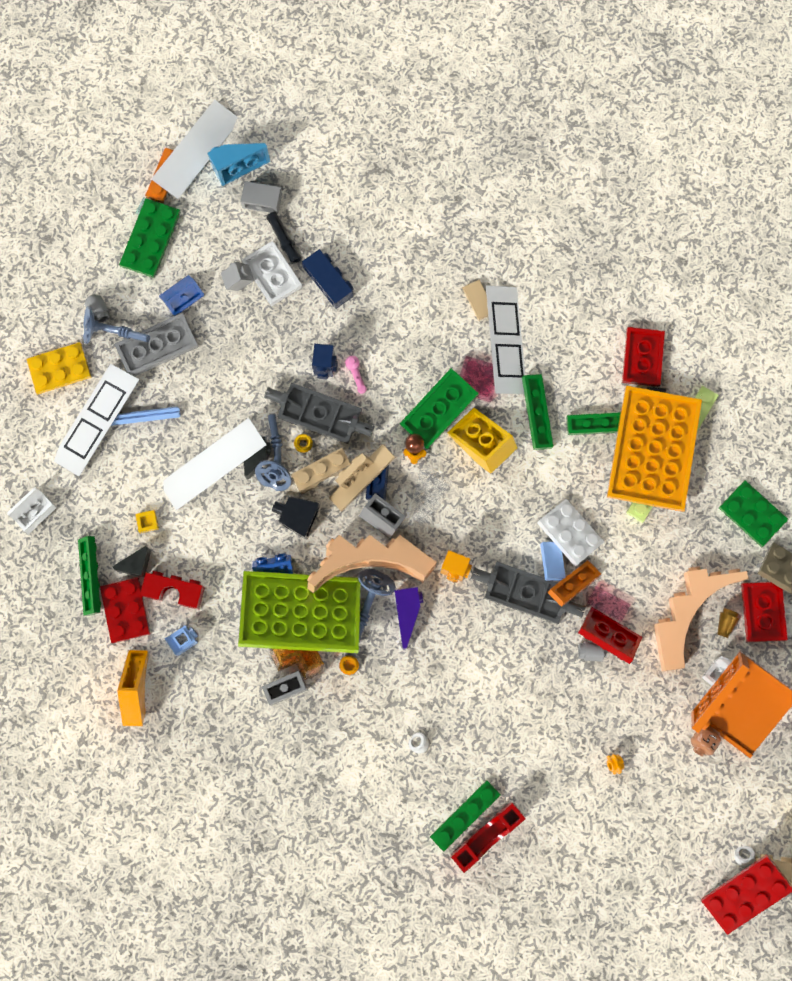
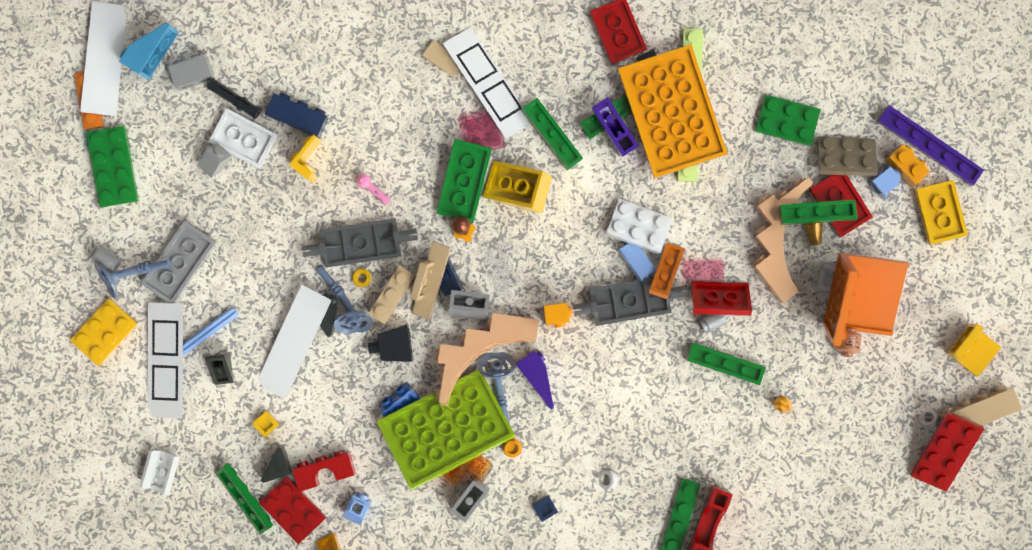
camera: 30 degrees left, 10 degrees up
(137, 451) = (220, 368): none -> pearl dark grey slope
(181, 295) = (173, 204): panel -> none
(310, 313) = (299, 158): none -> yellow bracket
(324, 361) = (338, 195): dark blue brick -> none
(347, 736) = (545, 508): none -> dark blue plate
(583, 698) = (726, 363): none -> green plate
(595, 434) = (614, 127): none -> dark purple slope
(739, 606) = (817, 212): none -> green plate

